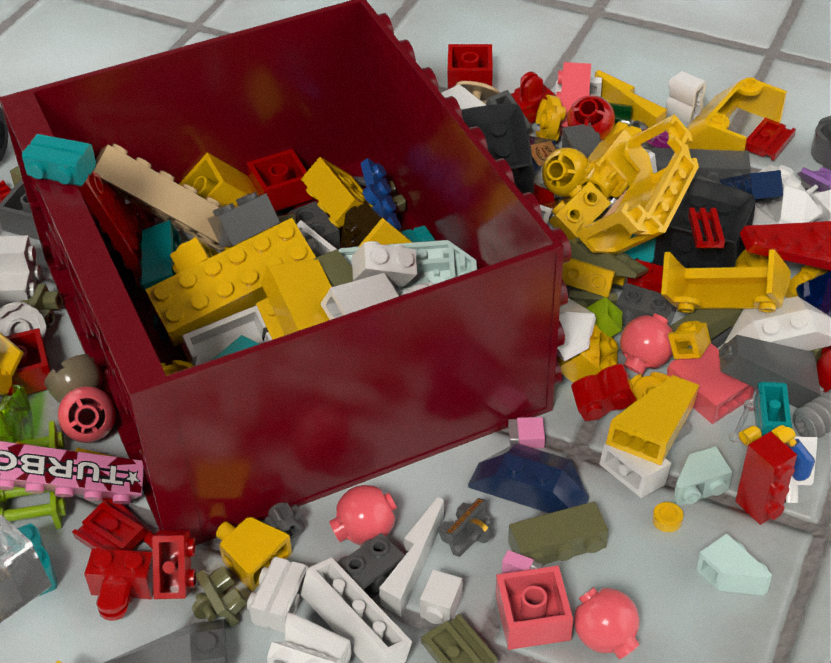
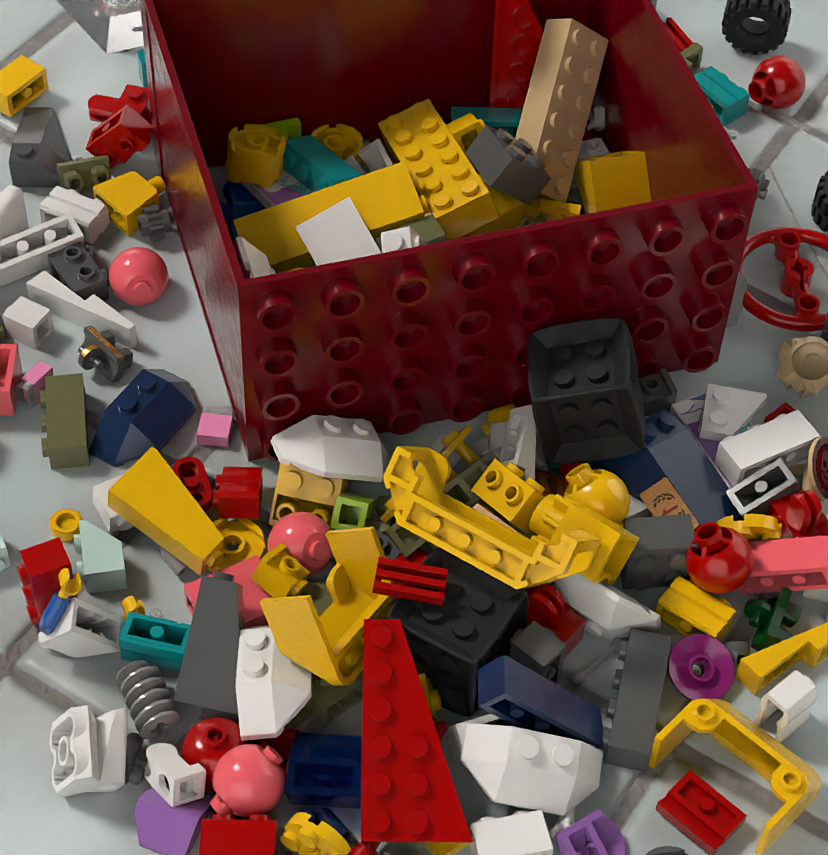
camera: 95 degrees right, 5 degrees up
(592, 434) = (198, 484): none -> red plate

